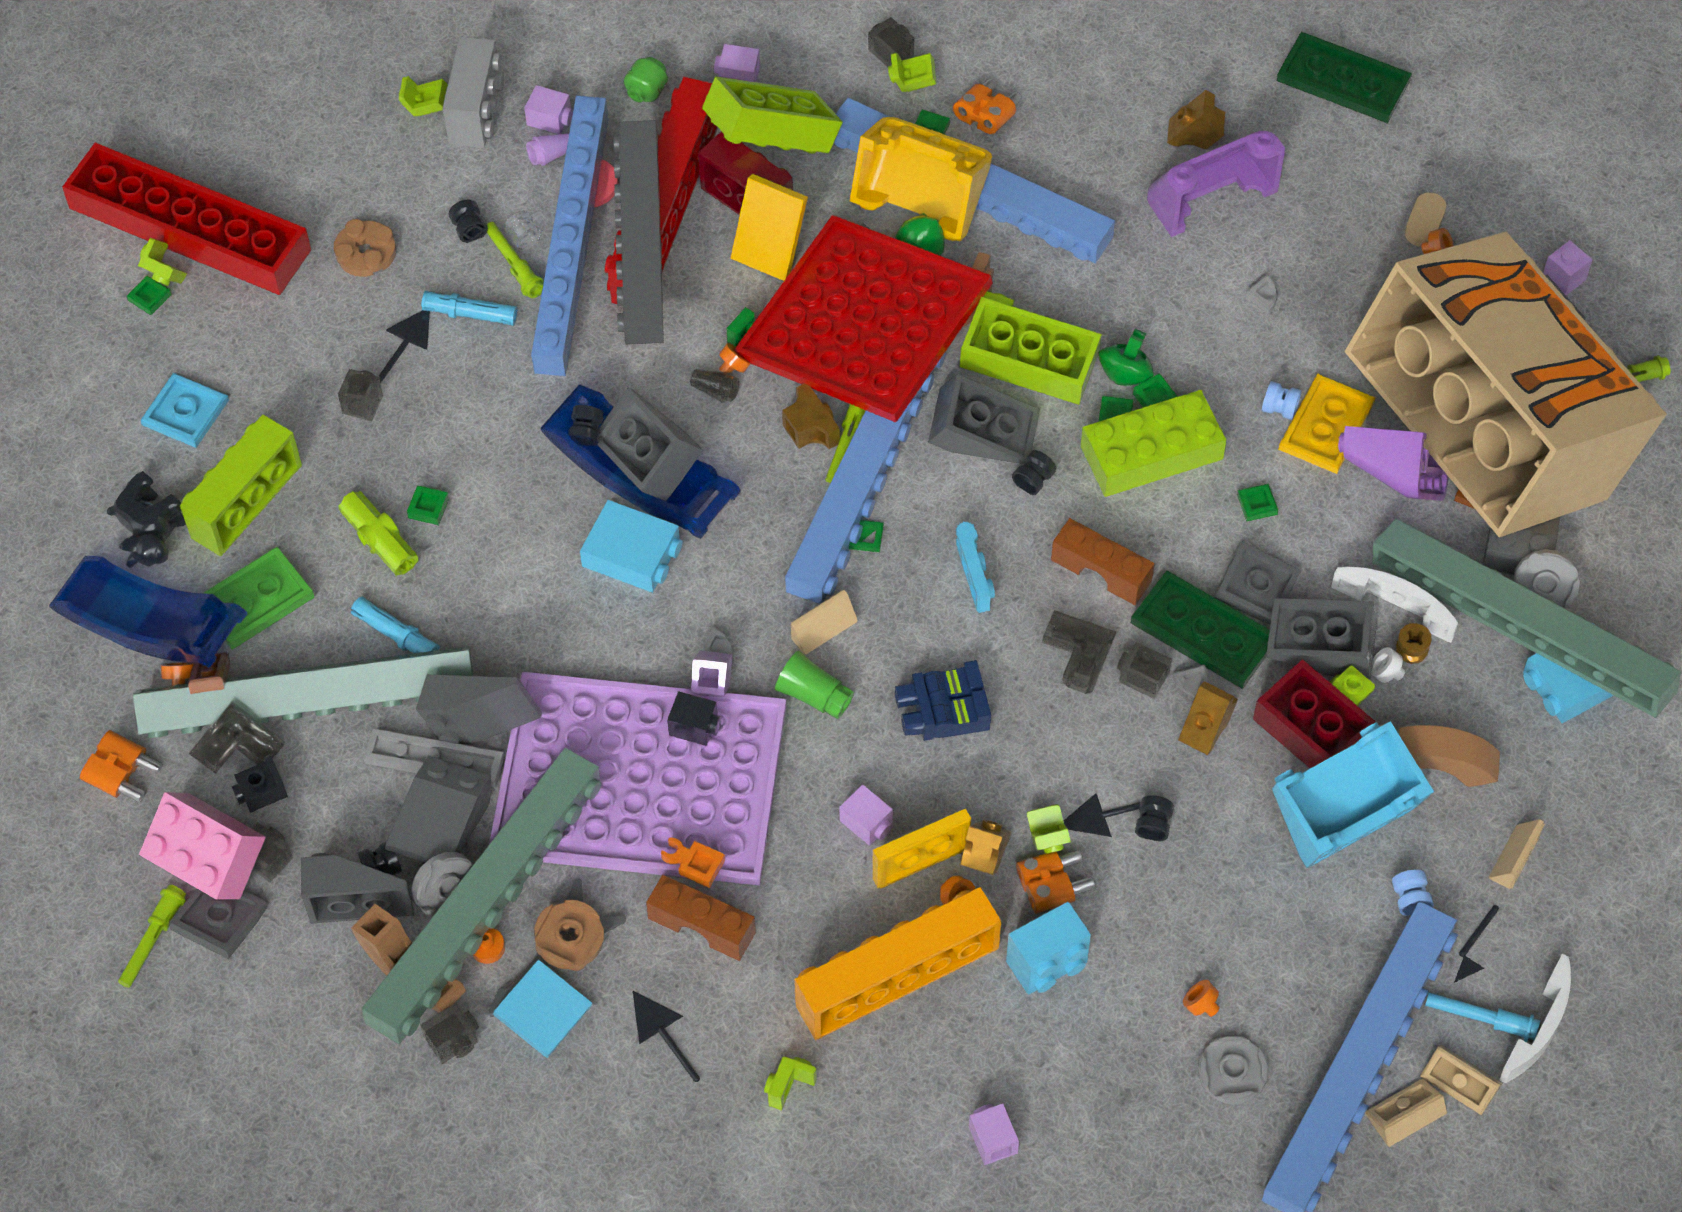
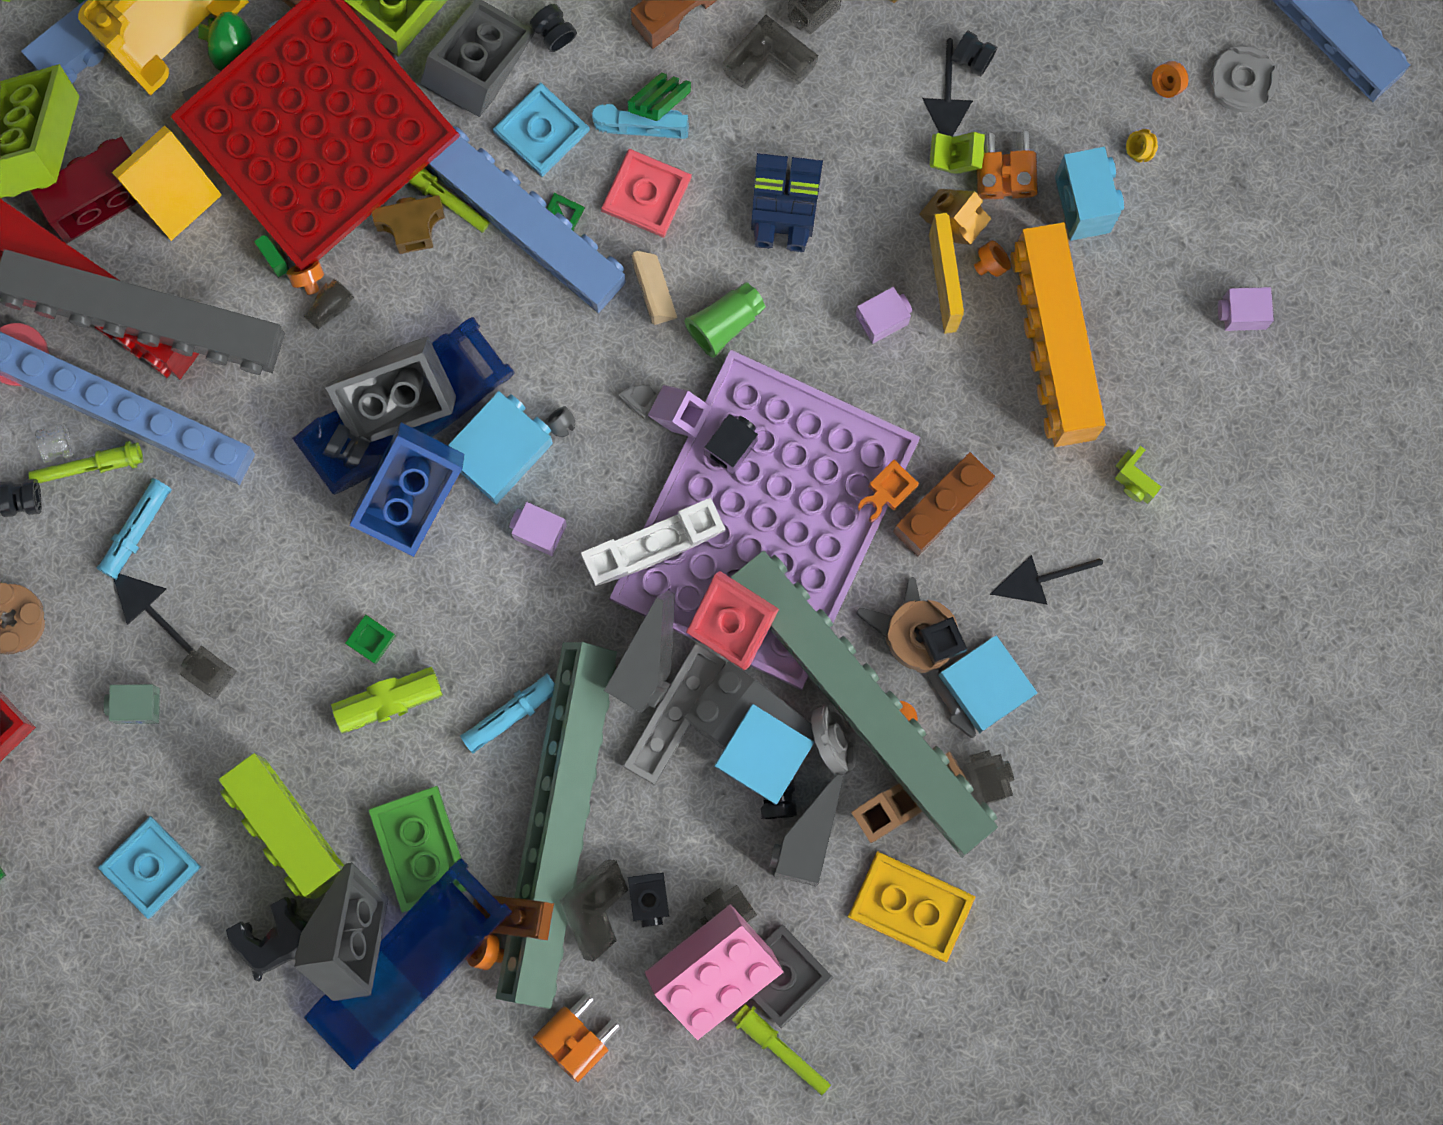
camera: 75 degrees left, 20 degrees up
(158, 549) = (344, 937): none -> dark grey slope
(313, 1008) = (911, 907): none -> yellow tile
(318, 352) = (133, 704): none -> sand green brick
(409, 822) = (764, 754): none -> medium azure tile
(526, 763) = (732, 620): none -> coral tile
(562, 478) = (407, 489): none -> blue brick
(565, 946) = (942, 640): none -> black tile
(567, 599) = (537, 528): none -> lavender brick
(577, 684) = (654, 543): none -> white slope
(673, 588) = (560, 421): none -> dark grey hinge
(911, 594) = (646, 193): none -> coral tile
(938, 495) = (541, 129): none -> medium azure tile
(1000, 569) = (654, 94): none -> green tile
(1123, 993) = (1142, 145): none -> yellow plate

